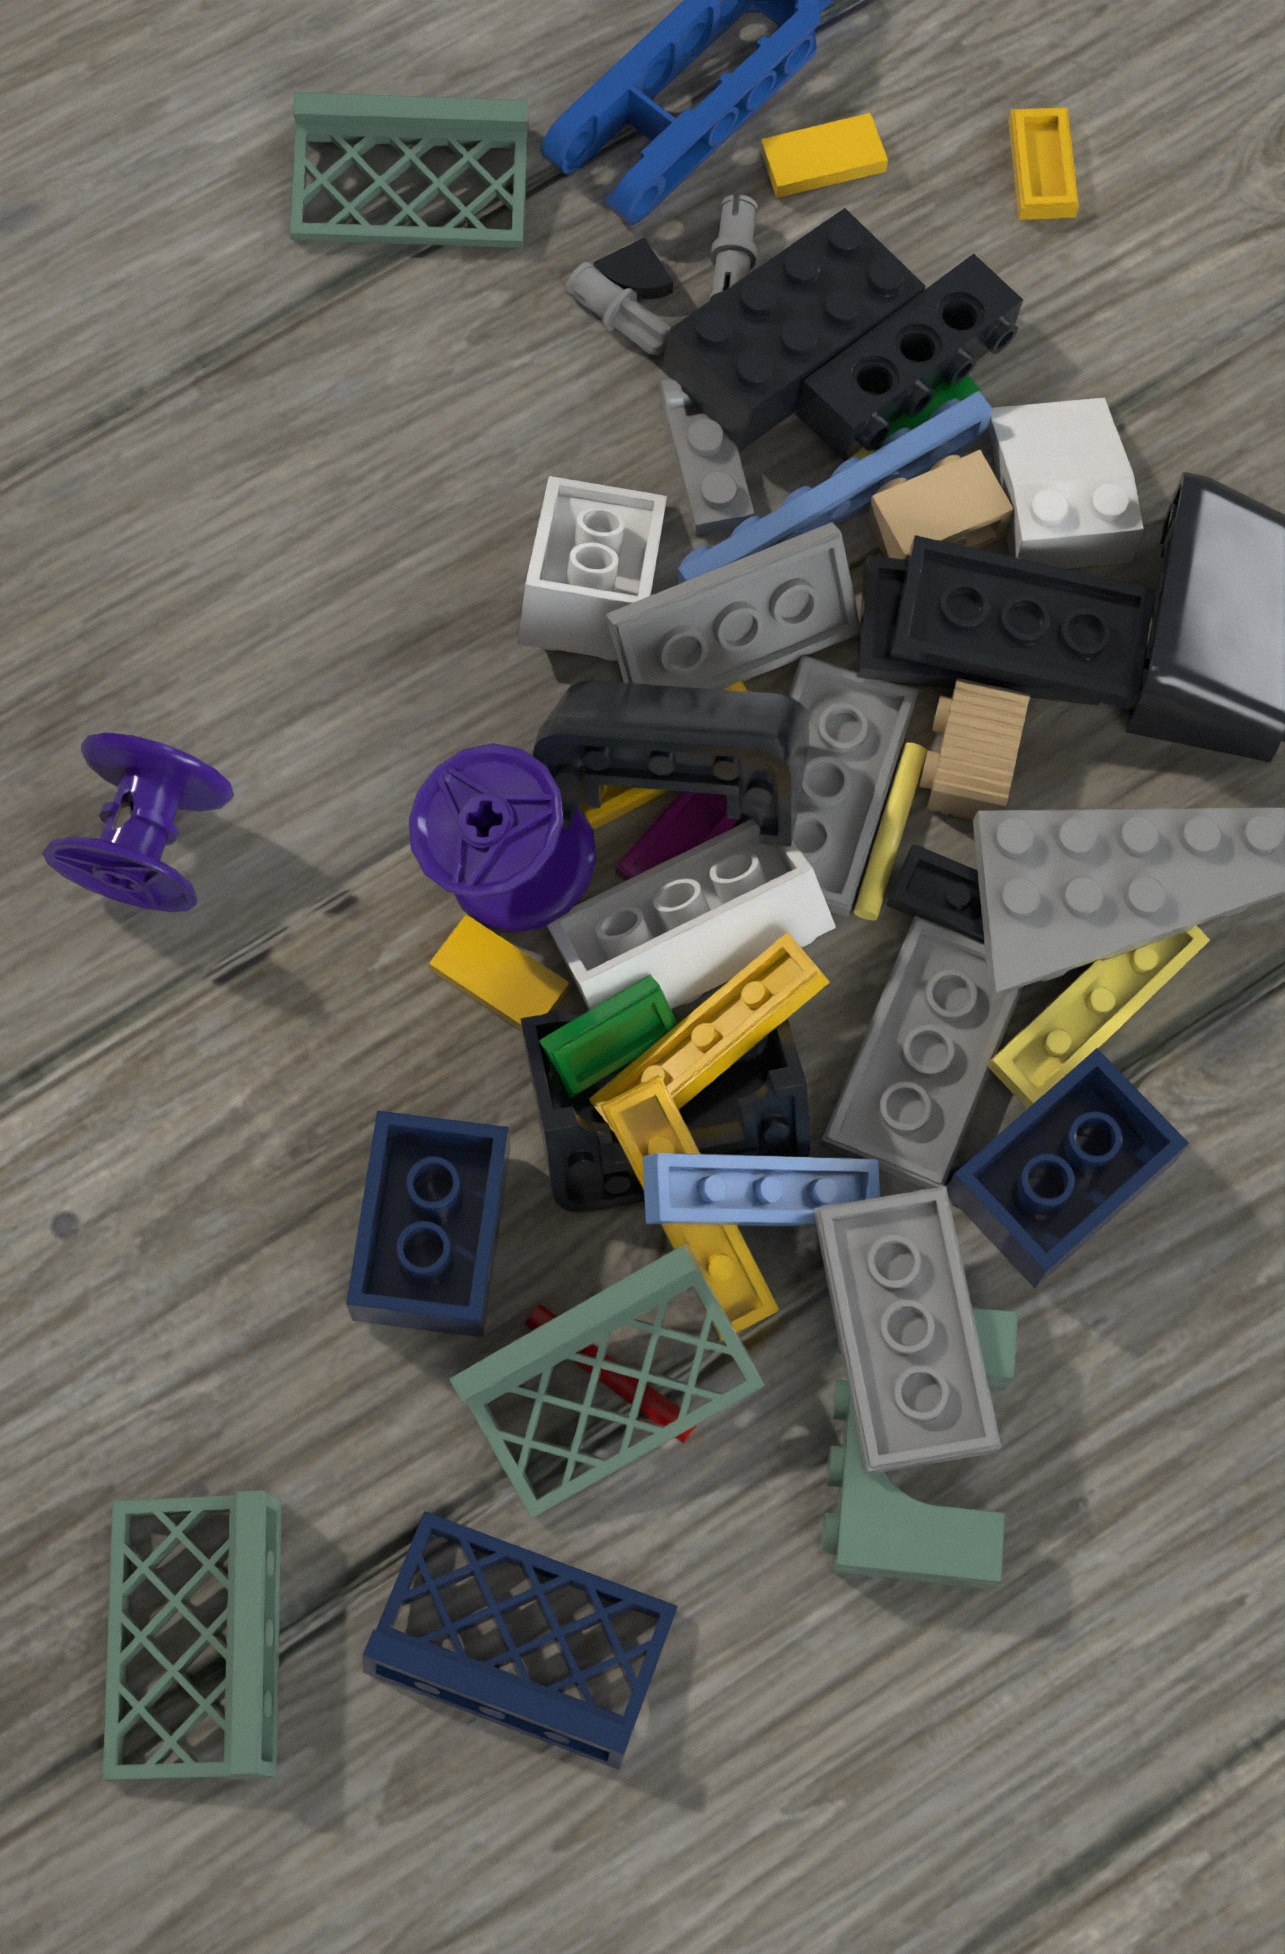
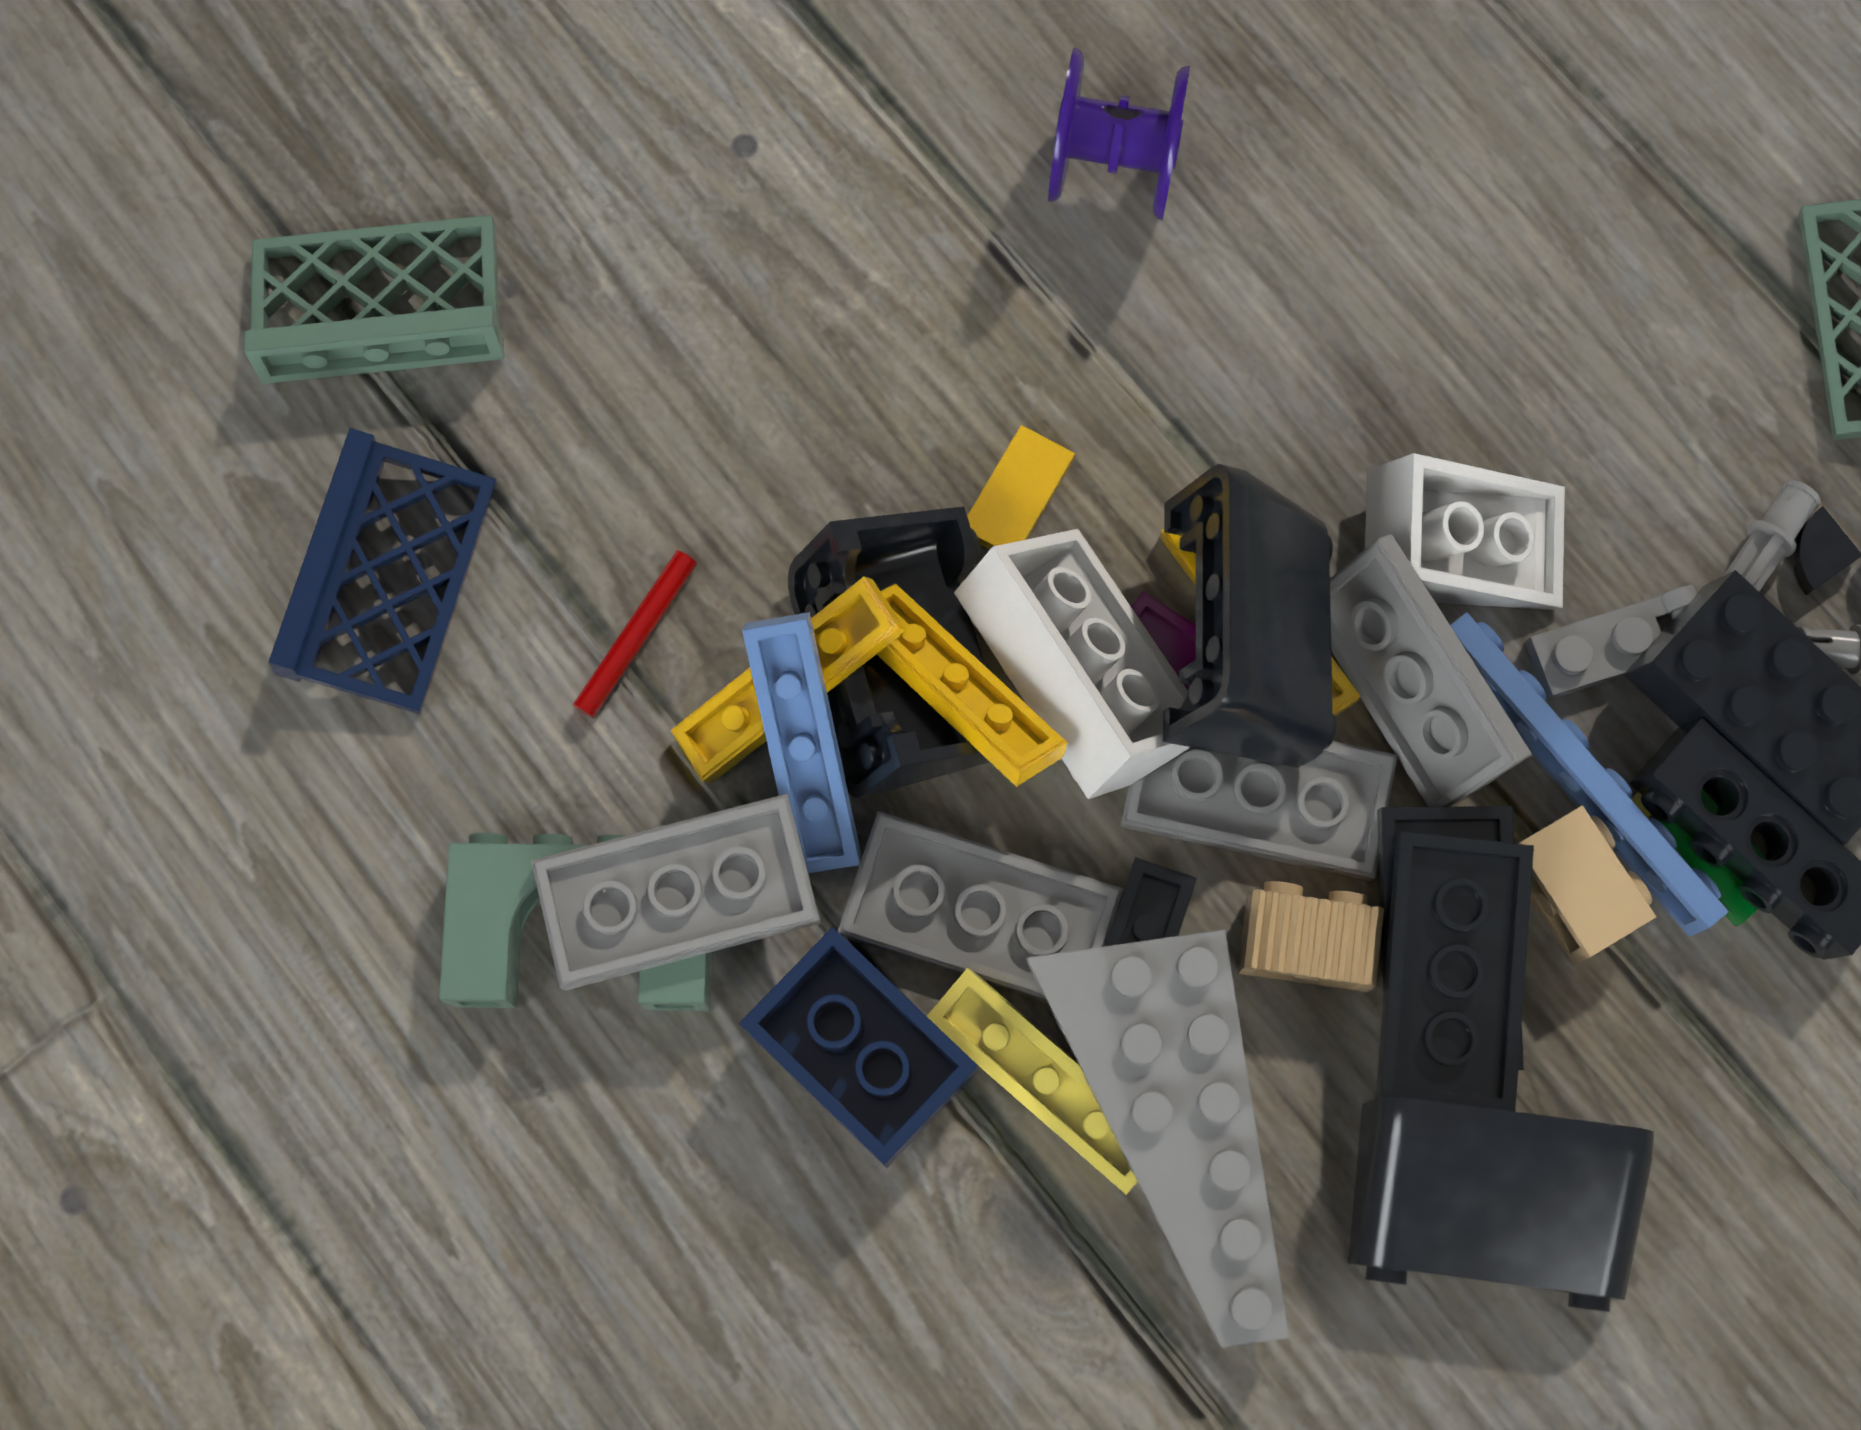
camera: 90 degrees right, 5 degrees up
(429, 1224) = (753, 446): dark blue brick -> none
(496, 838) = (1132, 448): dark purple piece -> none
(580, 1328) = (669, 601): sand green fence -> none
(608, 1036) = (951, 588): green tile -> none
(890, 832) = (1213, 859): light yellow bar -> none
(1066, 483) = (1643, 1017): white slope -> none

